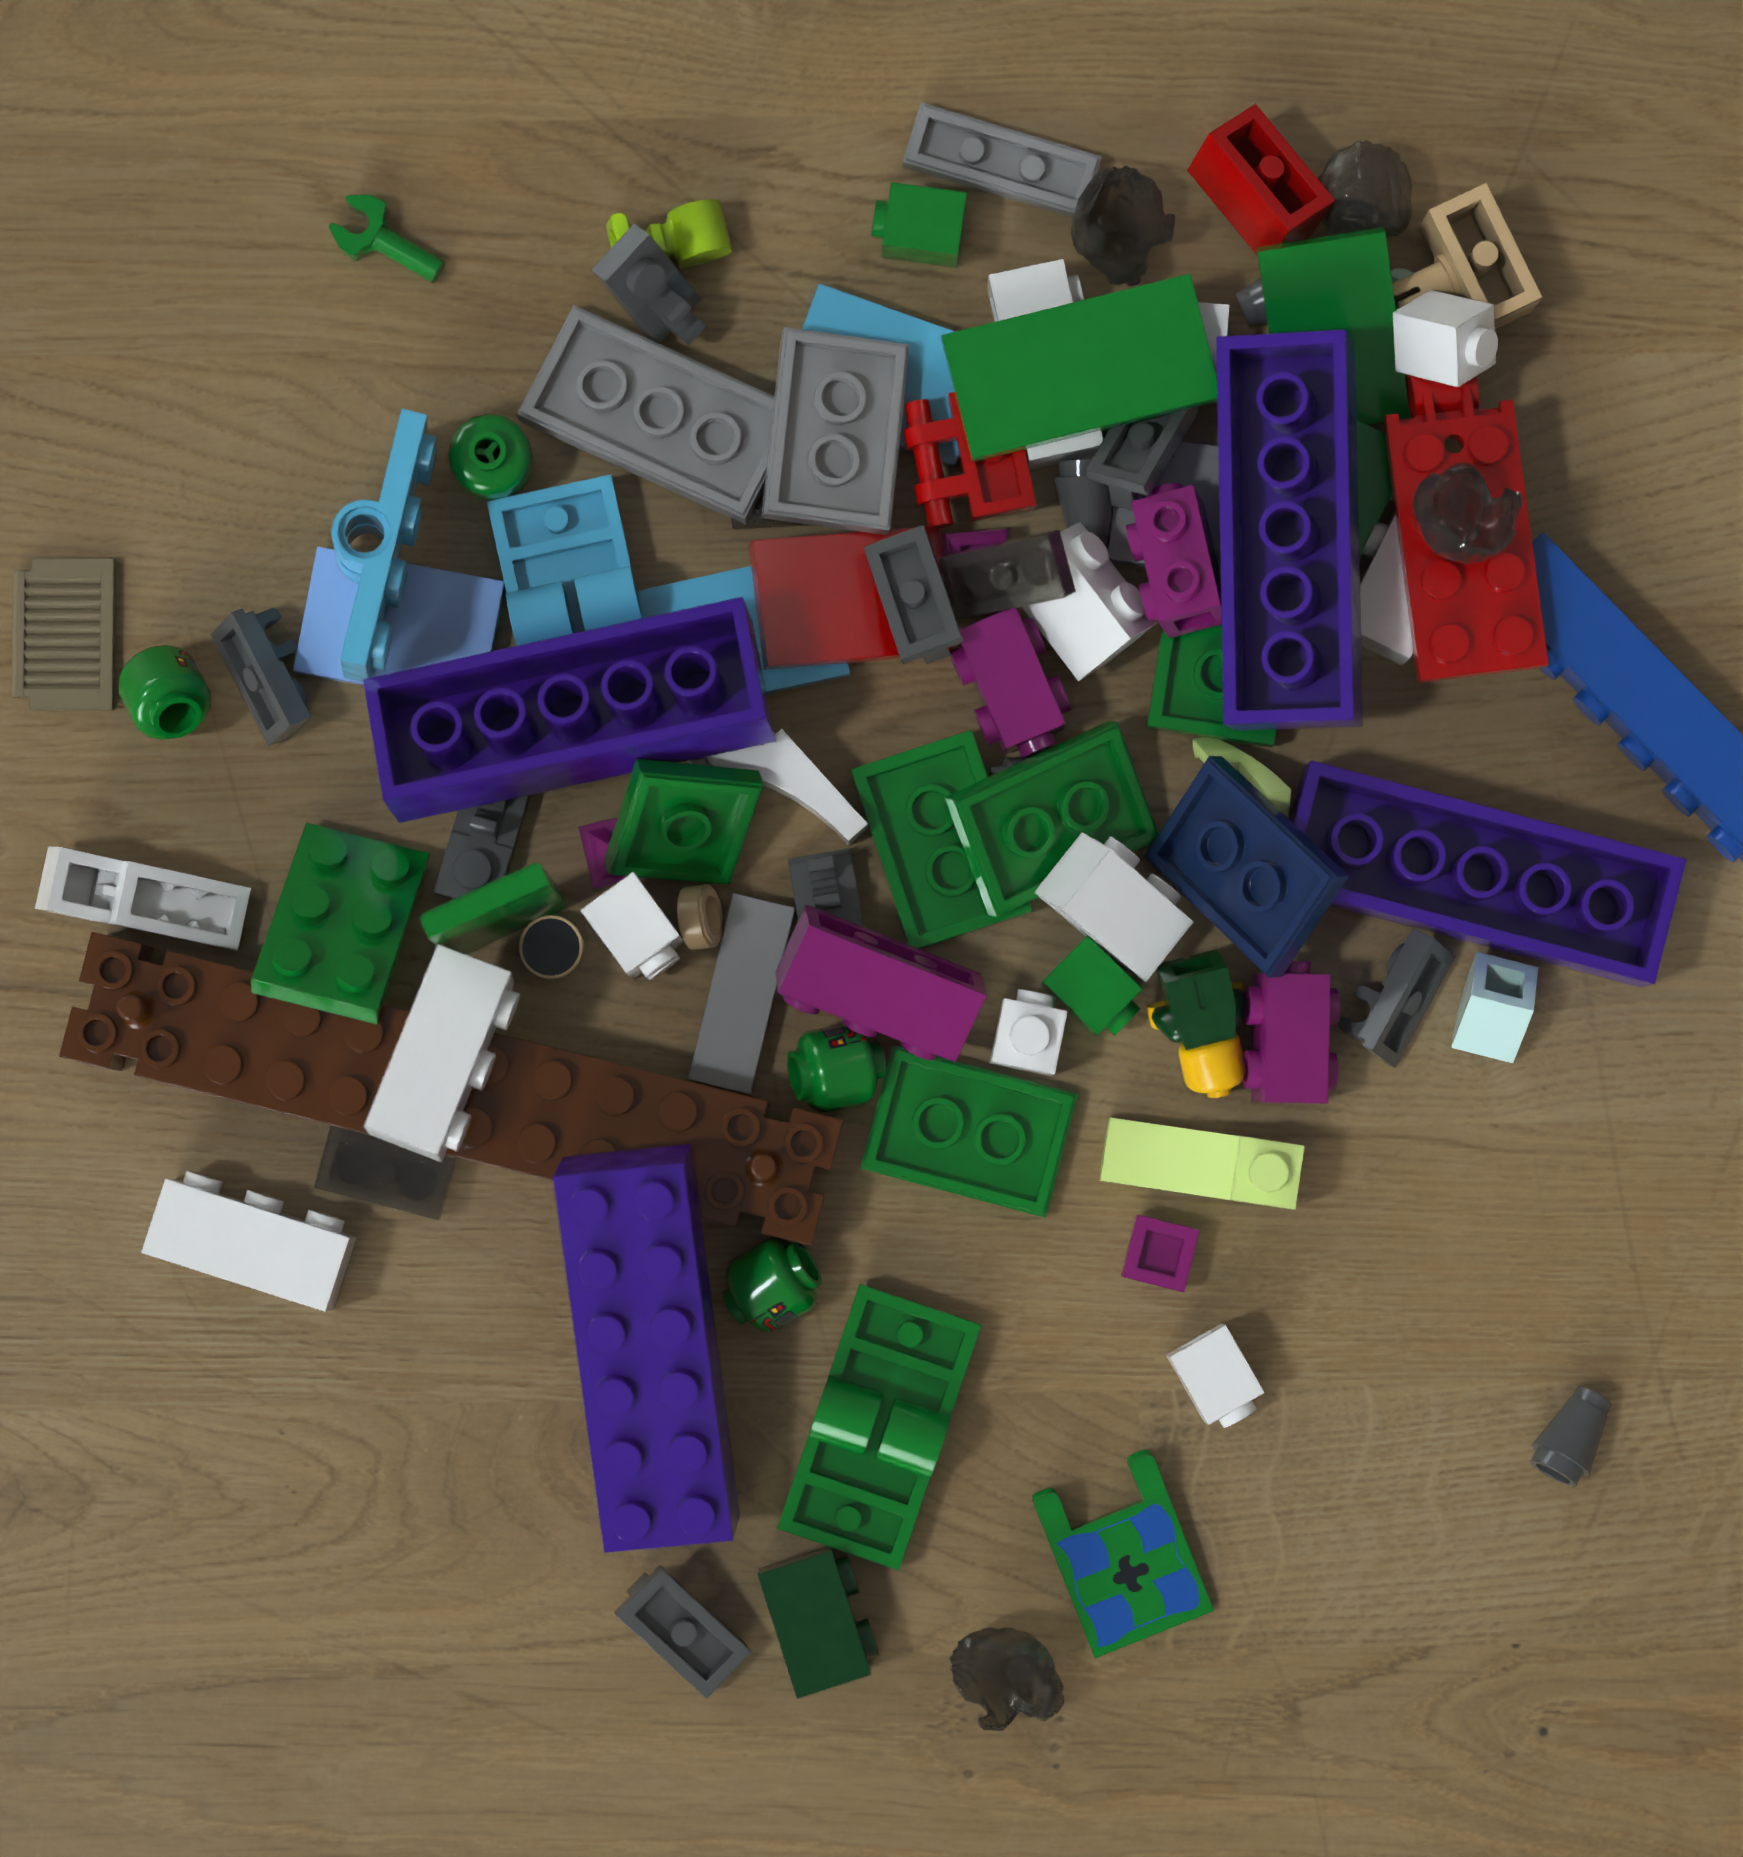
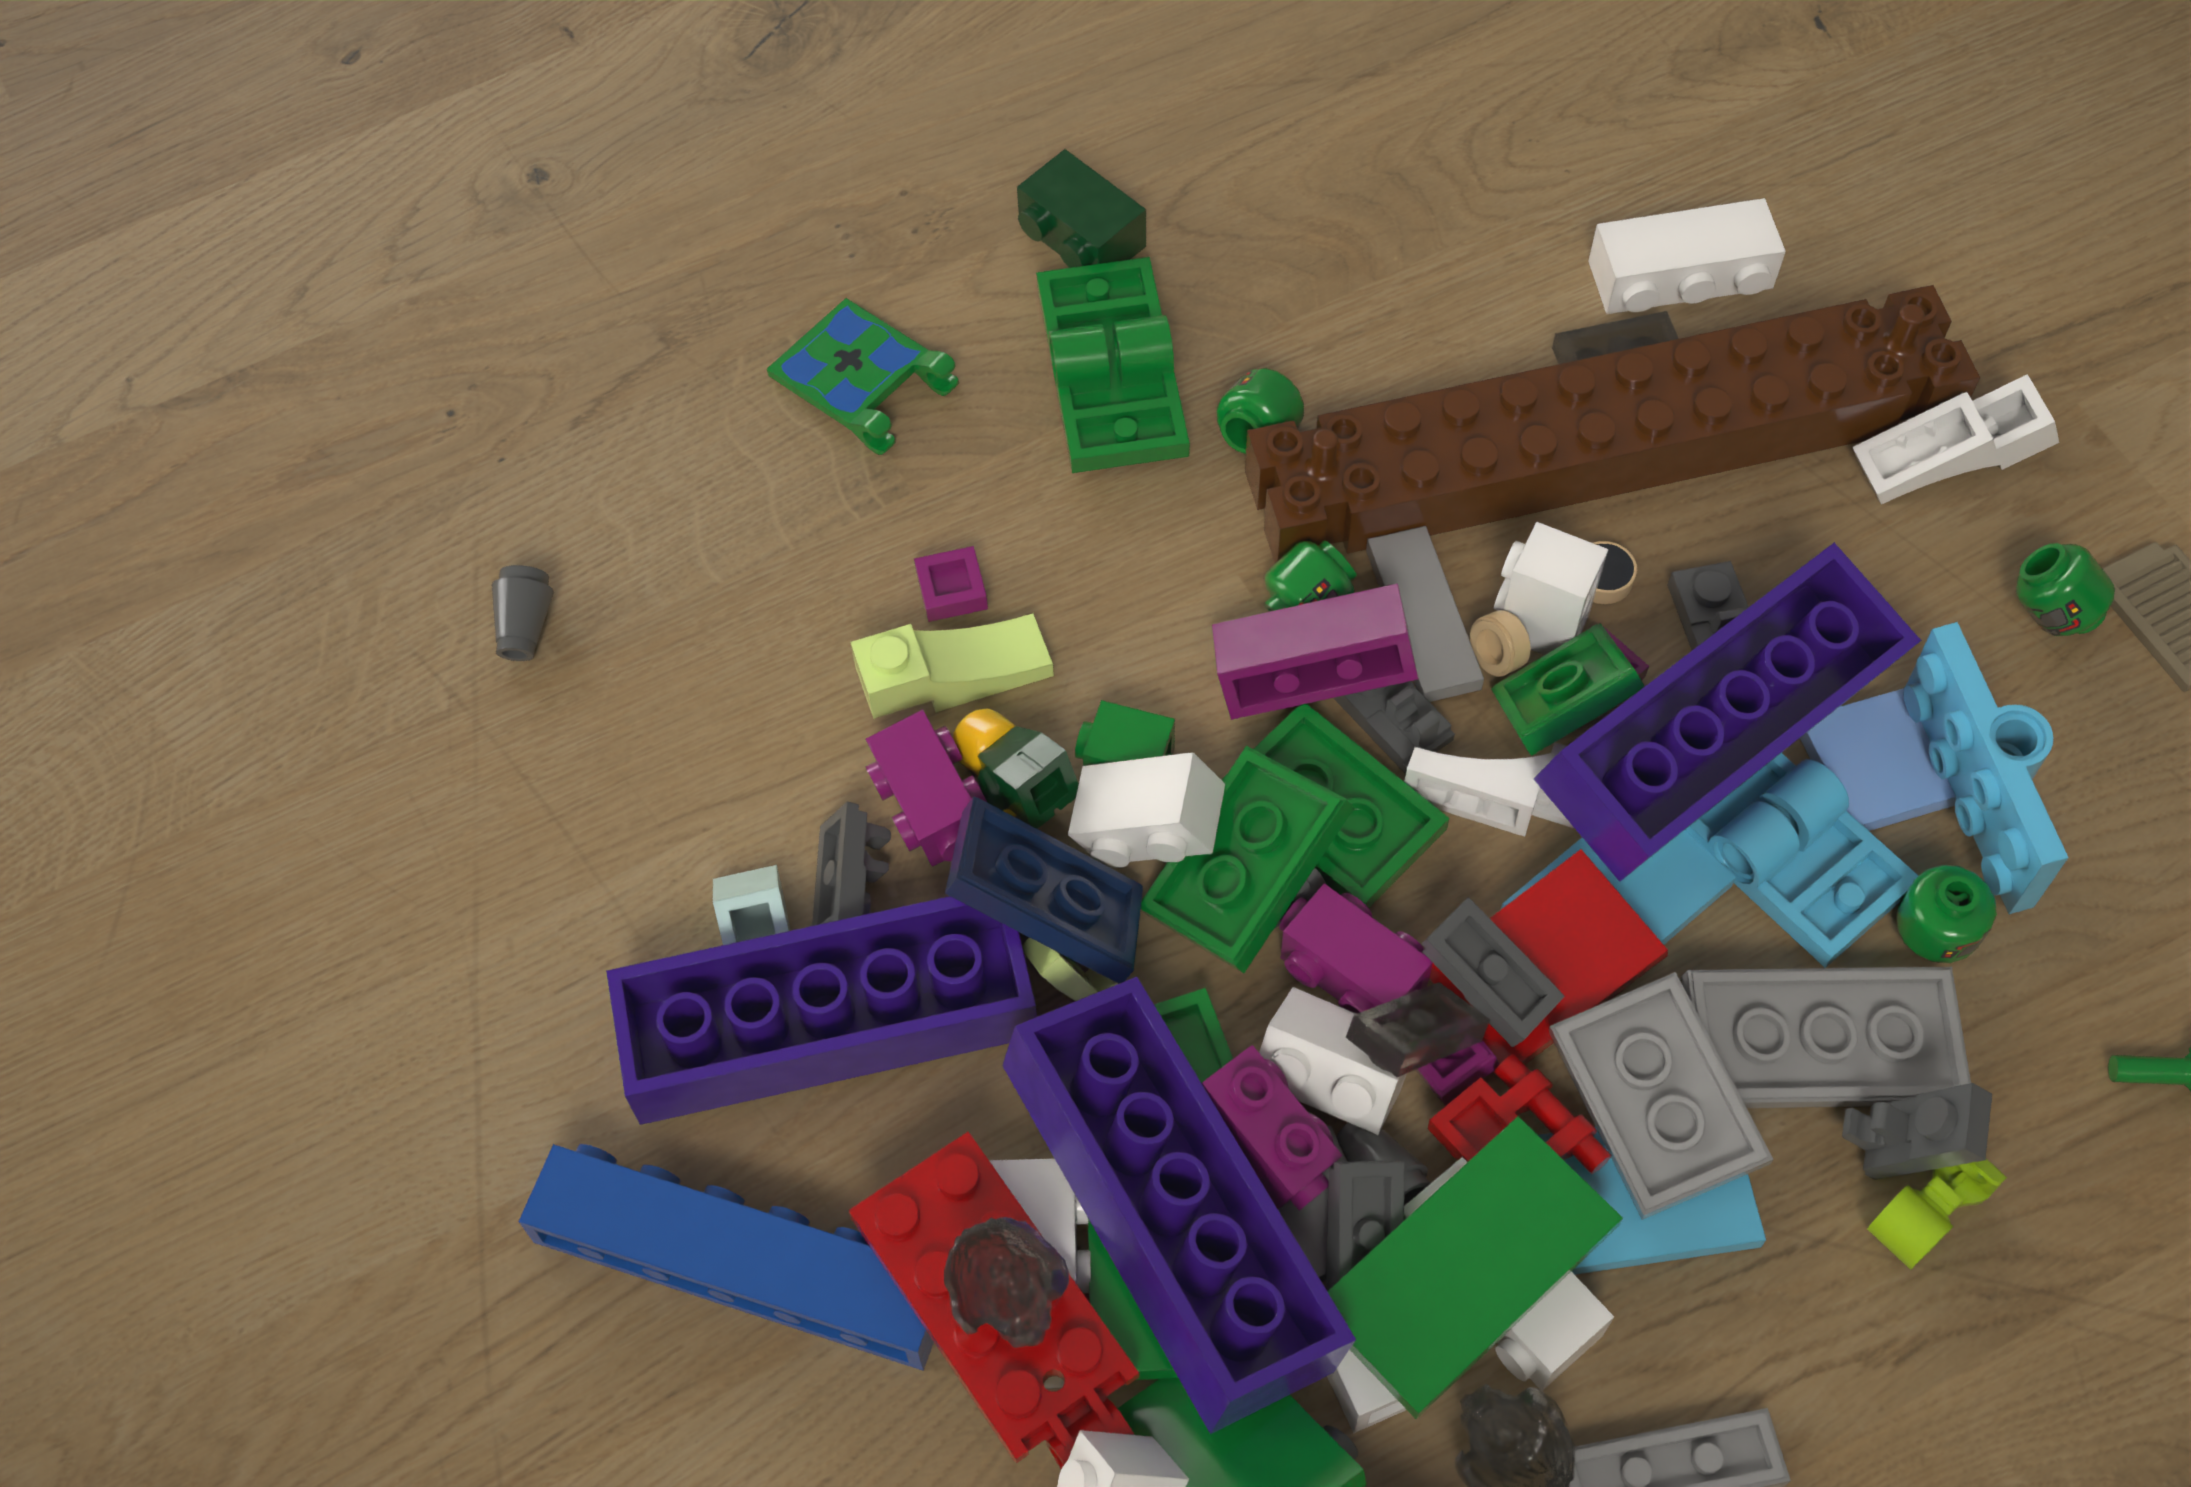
camera: 155 degrees right, 25 degrees down
(260, 674) = (2010, 653): dark grey plate -> none
(340, 923) = (1788, 482): green plate -> none
(442, 1054) = (1643, 397): white brick -> none
(494, 910) = (1676, 529): green tile -> none
(647, 1347) = (1337, 302): dark purple brick -> none
(682, 1630) = (1181, 165): dark grey plate -> none
(920, 224) = (1708, 1348): green brick -> none
(969, 1131) = (1160, 602): green tile -> none
(1006, 1675) = (904, 251): clear smoke hair -> none
(1029, 1033) = (1161, 677): white brick -> none
(1216, 1376) = (854, 516): white brick -> none

